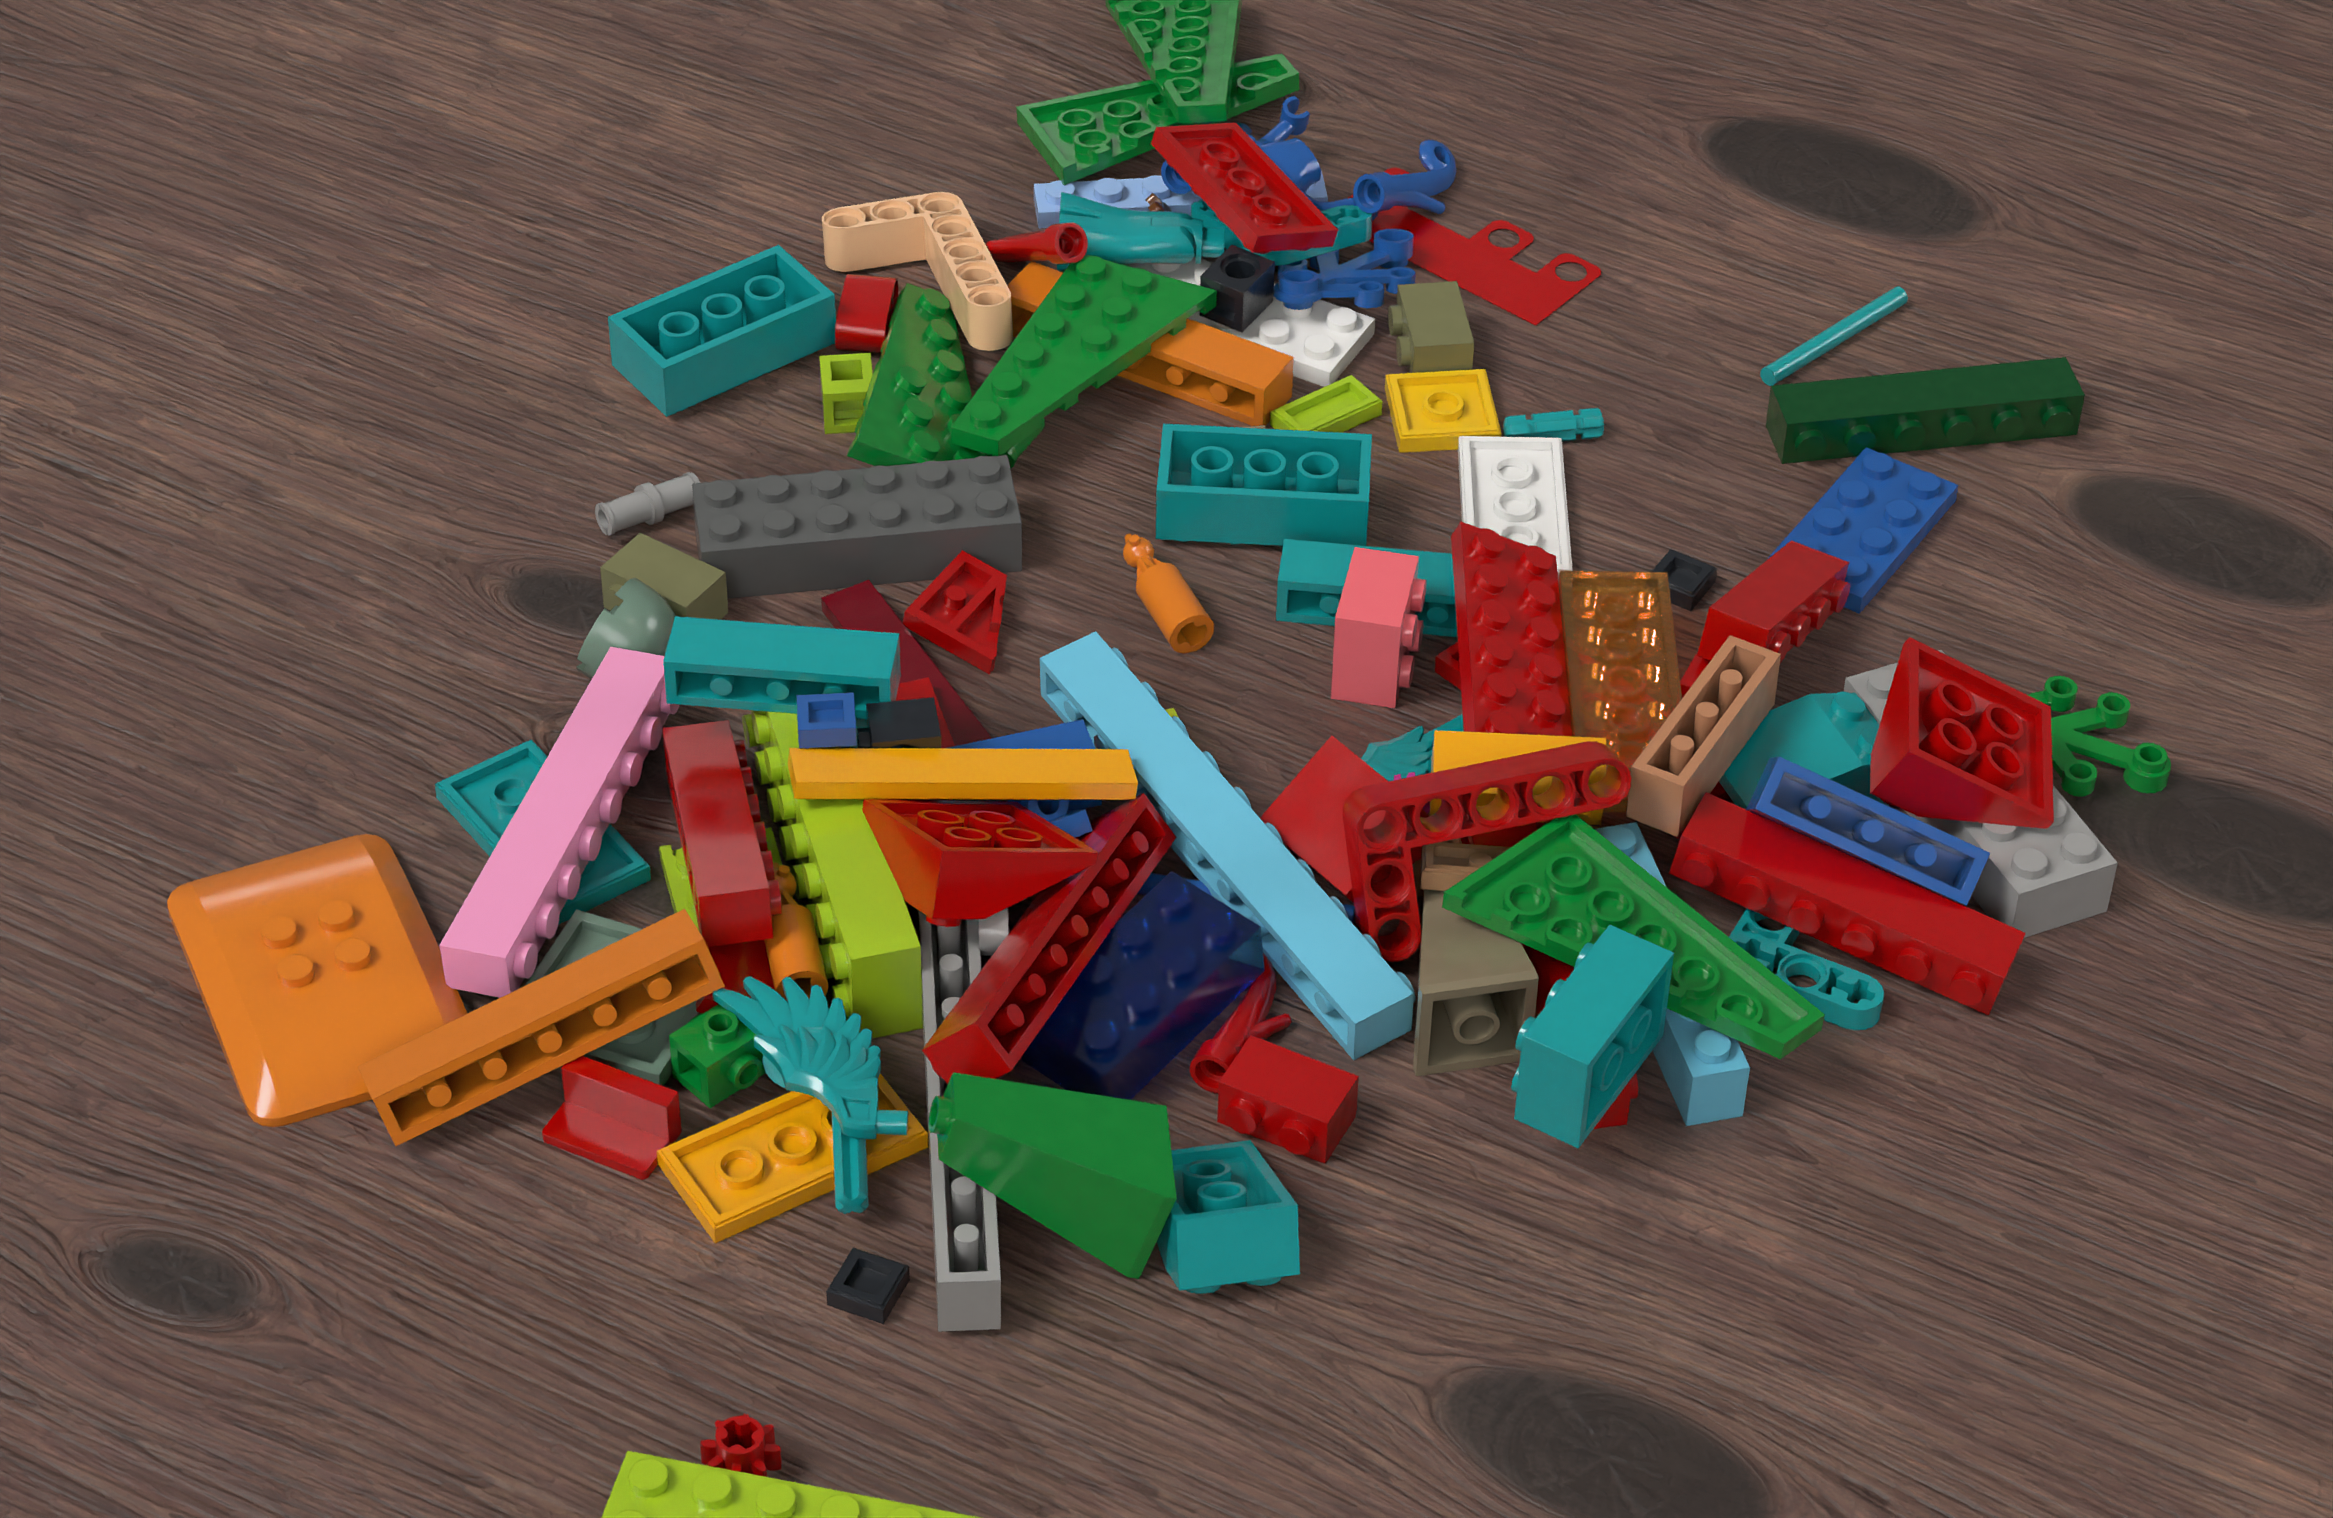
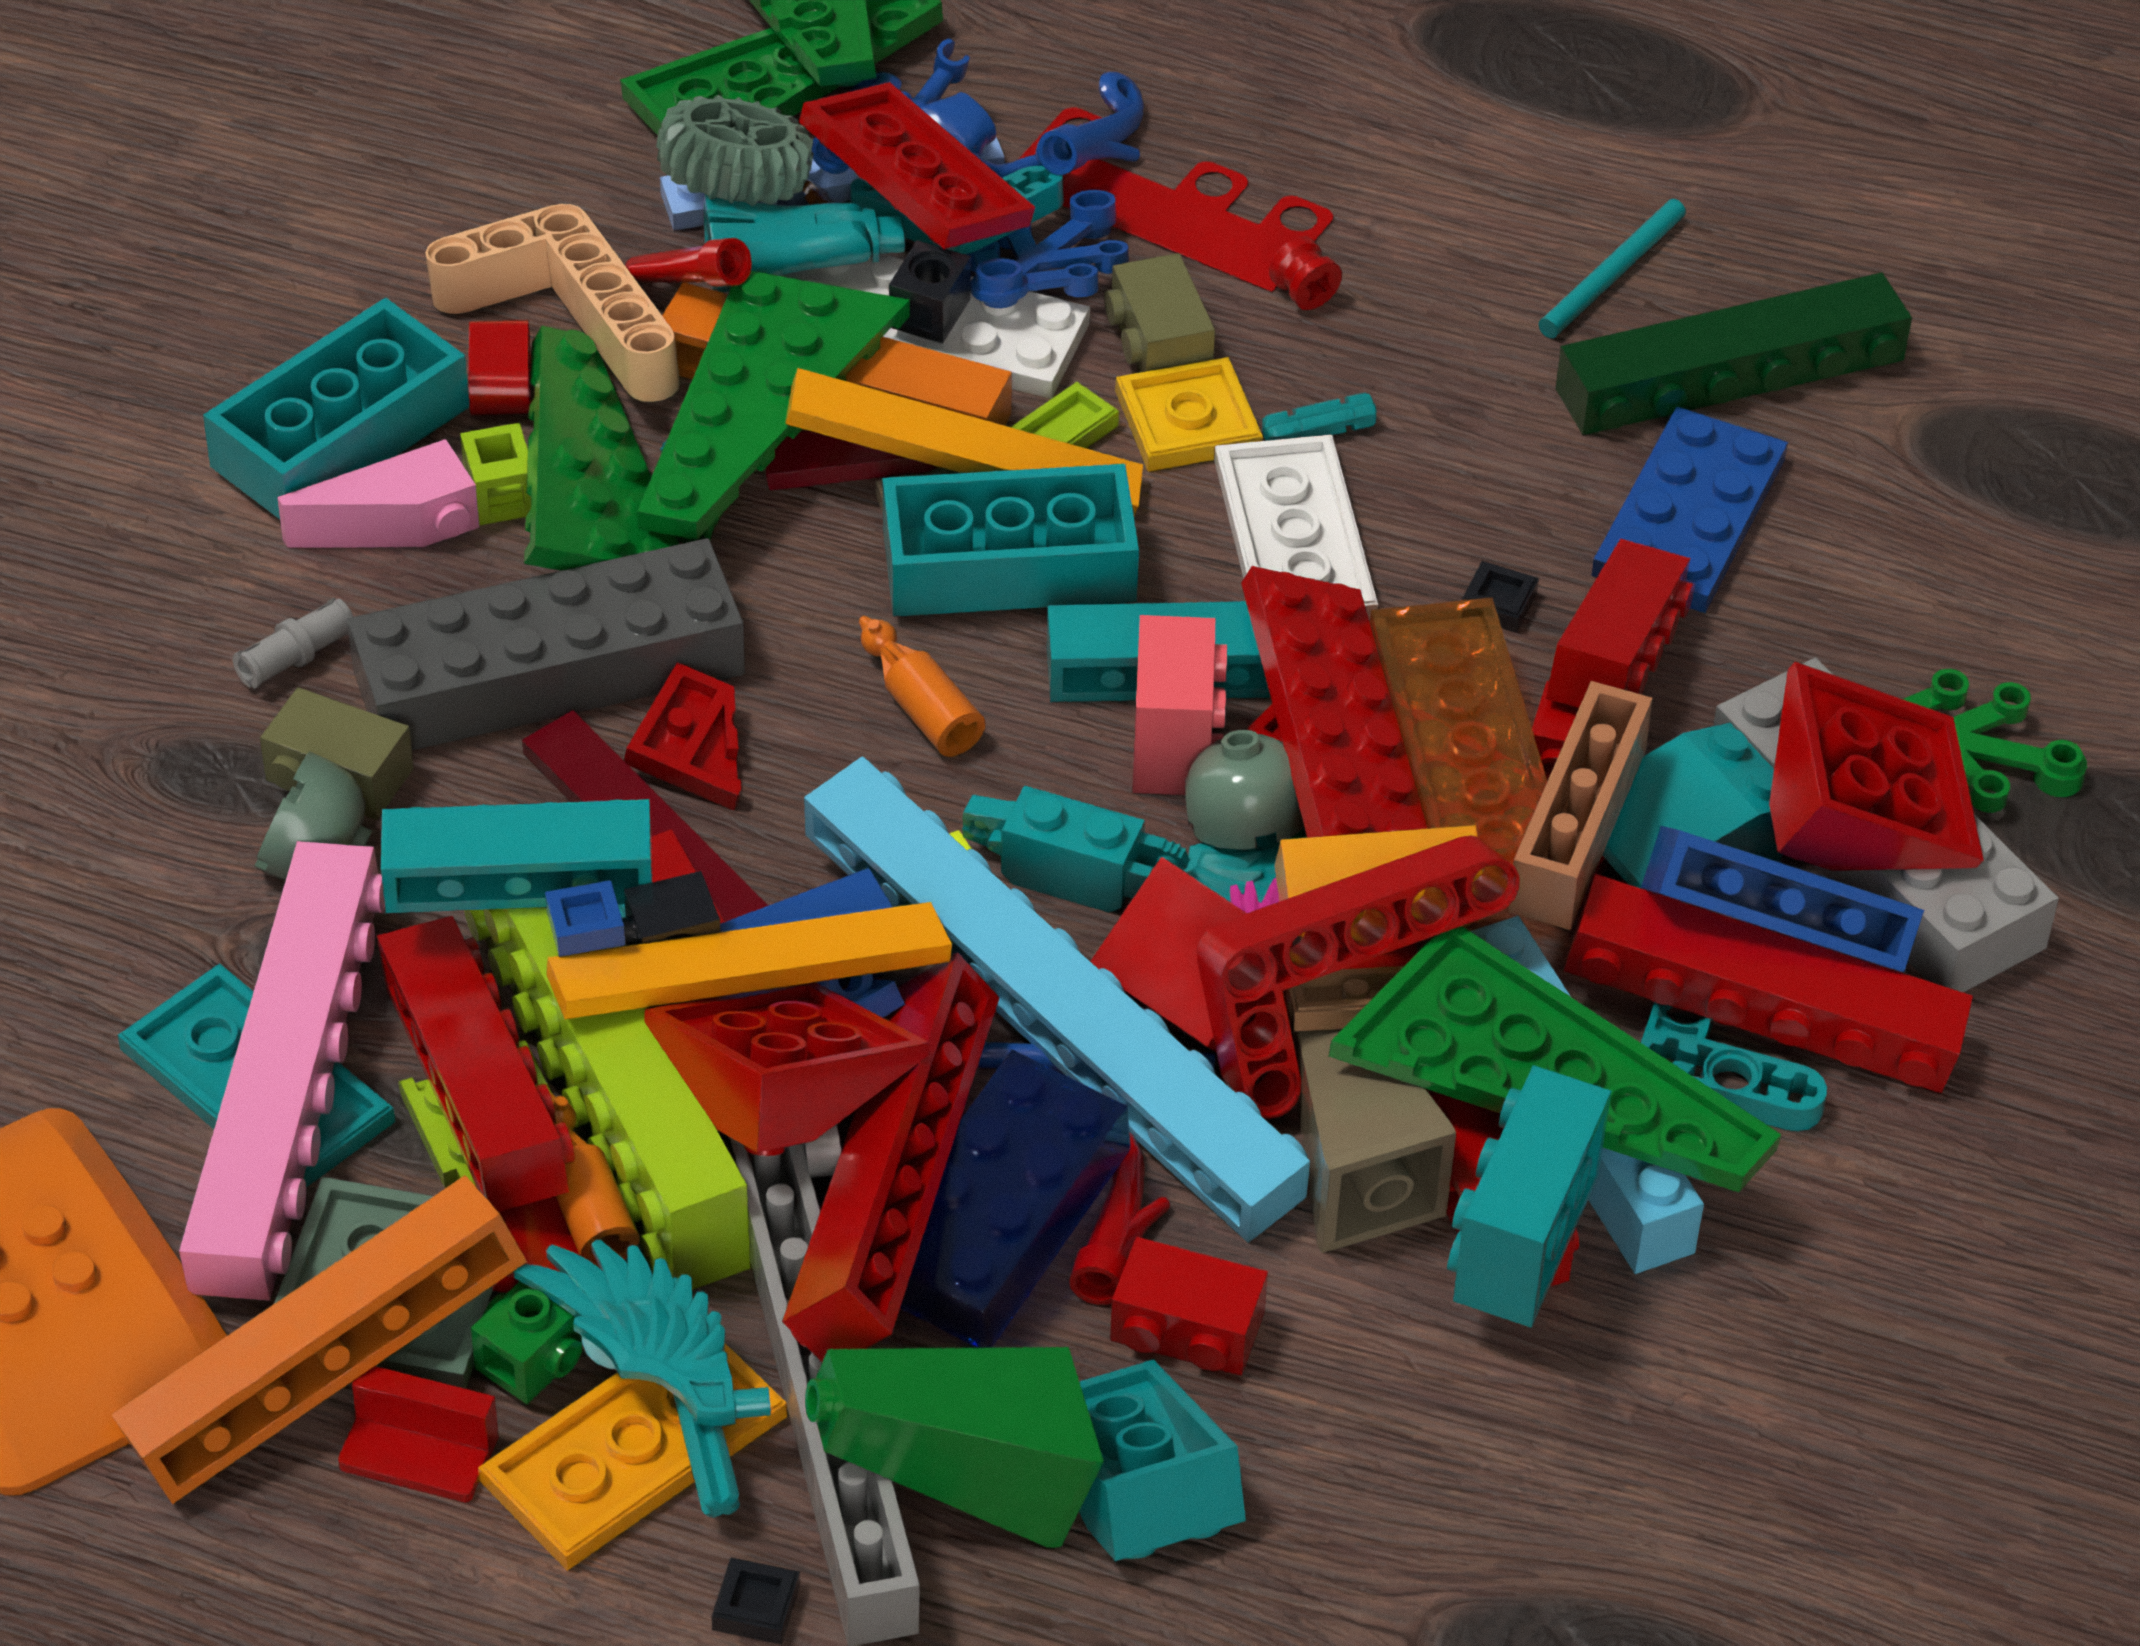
camera: 10 degrees left, 5 degrees up
(748, 406) = (386, 504): none -> bright pink slope
(1093, 160) = (734, 150): none -> sand green gear
(1149, 407) = (822, 459): none -> dark red tile
(1213, 394) = (931, 432): none -> light orange tile
(1258, 726) = (1068, 846): none -> teal hinge
(1417, 698) = (1242, 792): none -> sand green cylinder
(1565, 311) = (1305, 273): none -> red wheel

